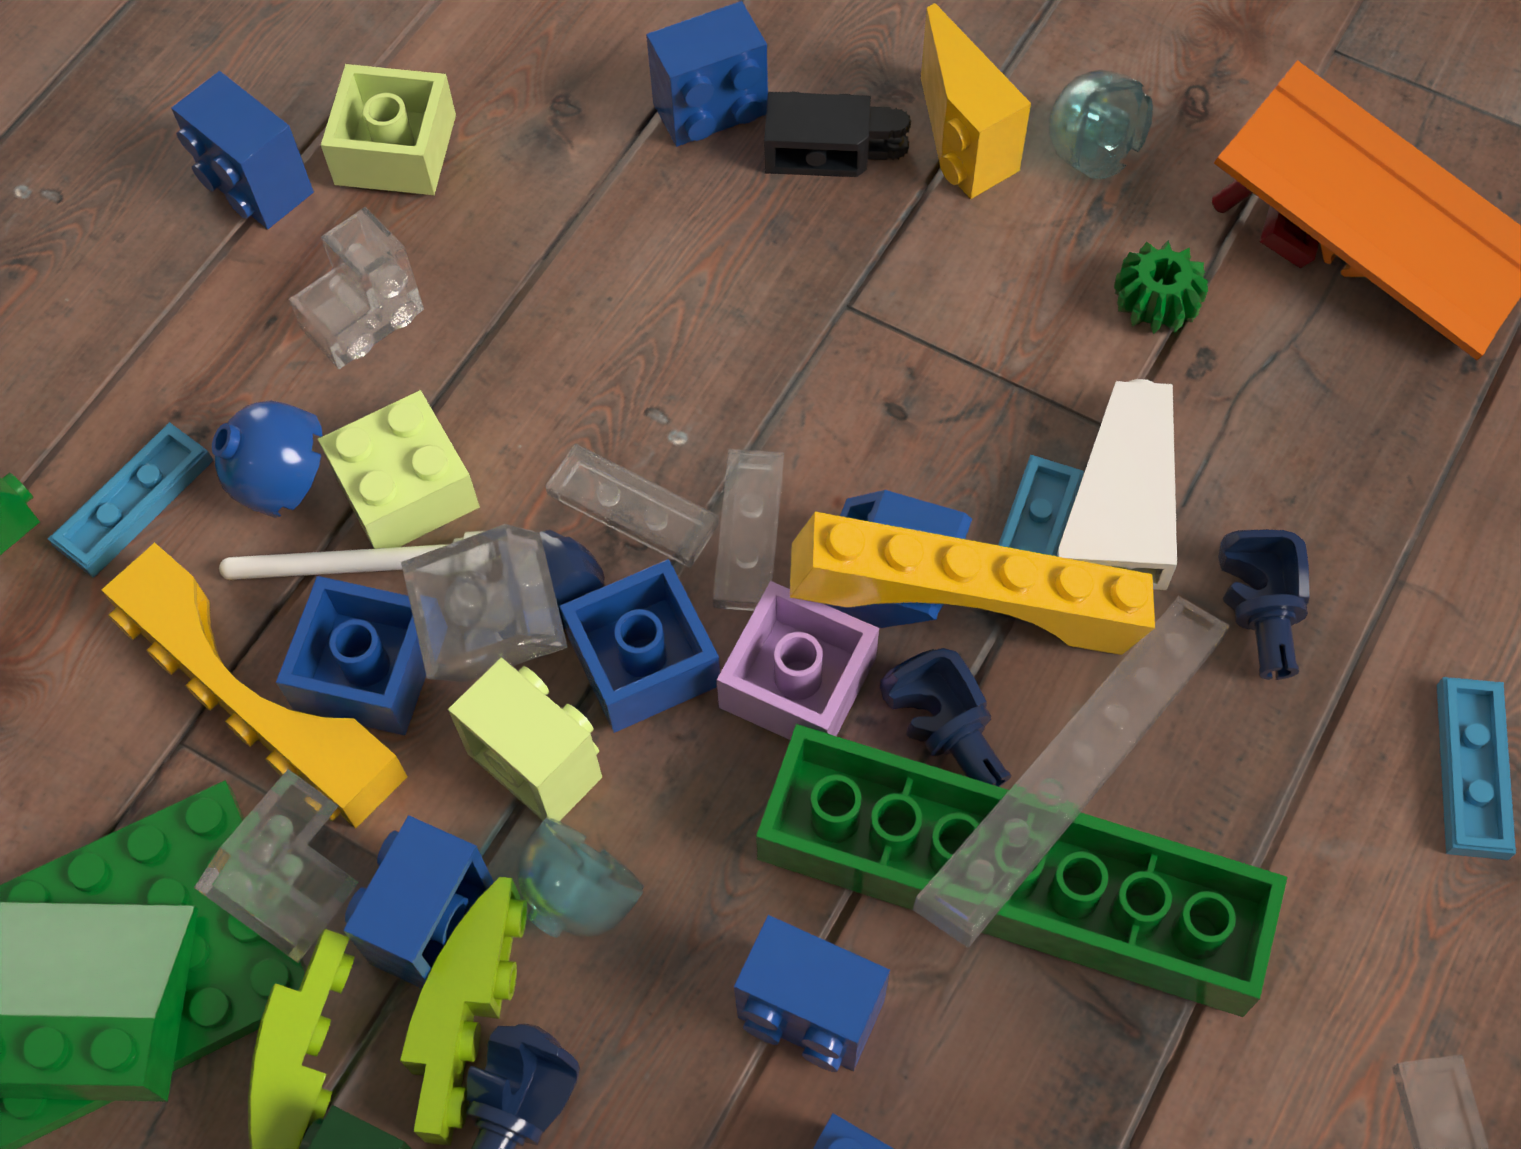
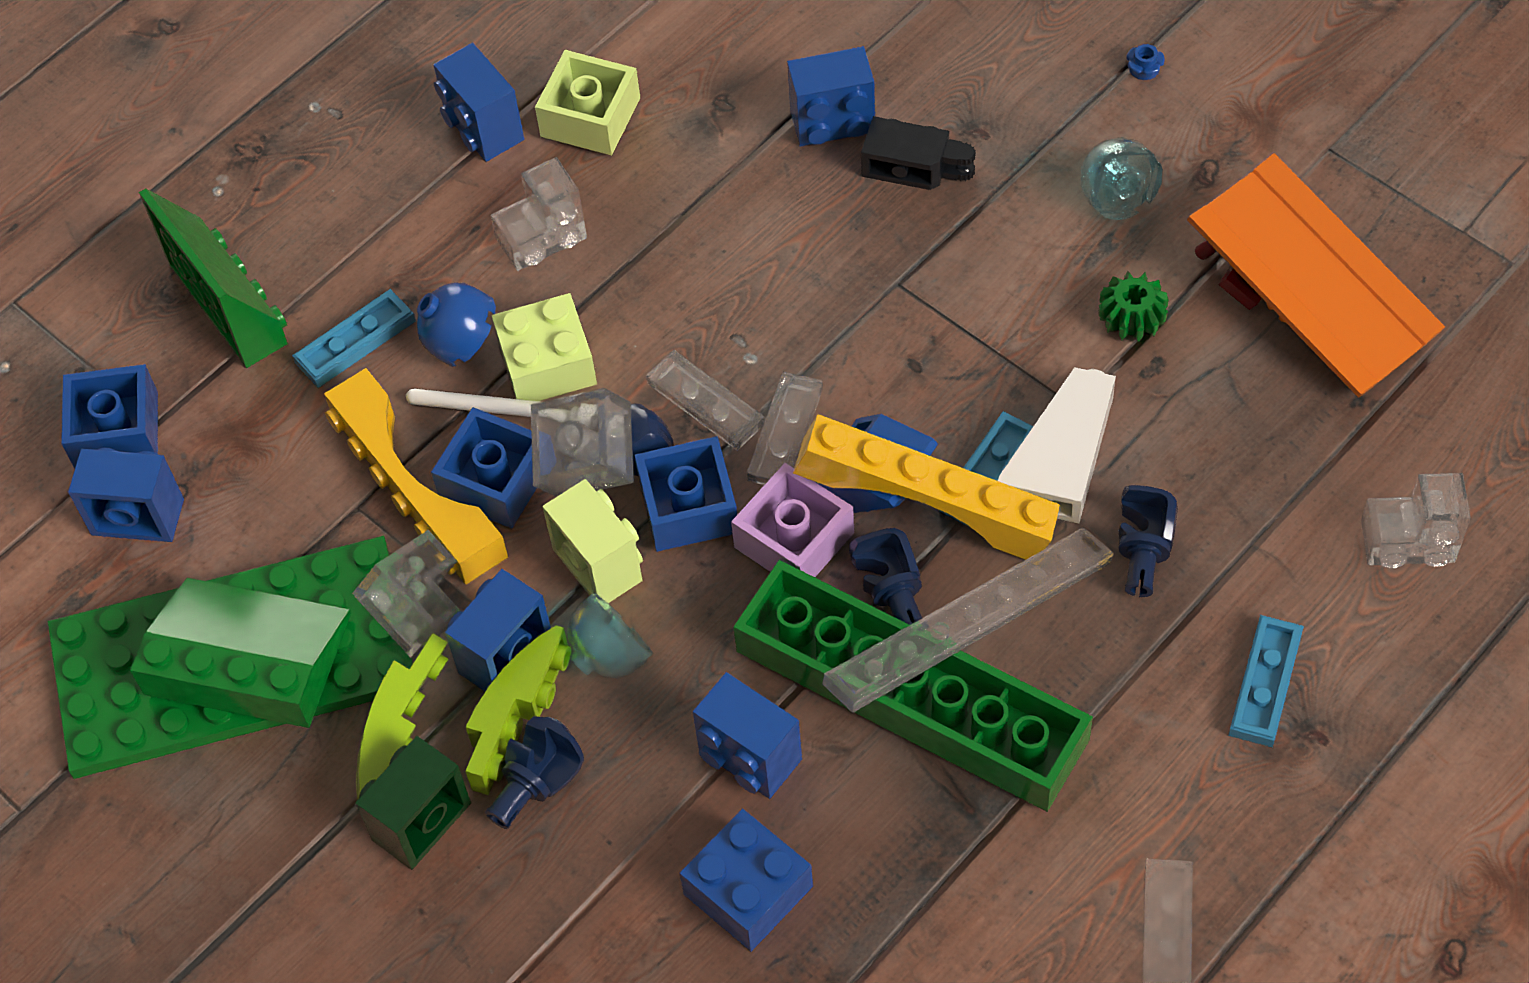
camera: 15 degrees right, 5 degrees down
(972, 108) = (1025, 155): yellow slope -> none

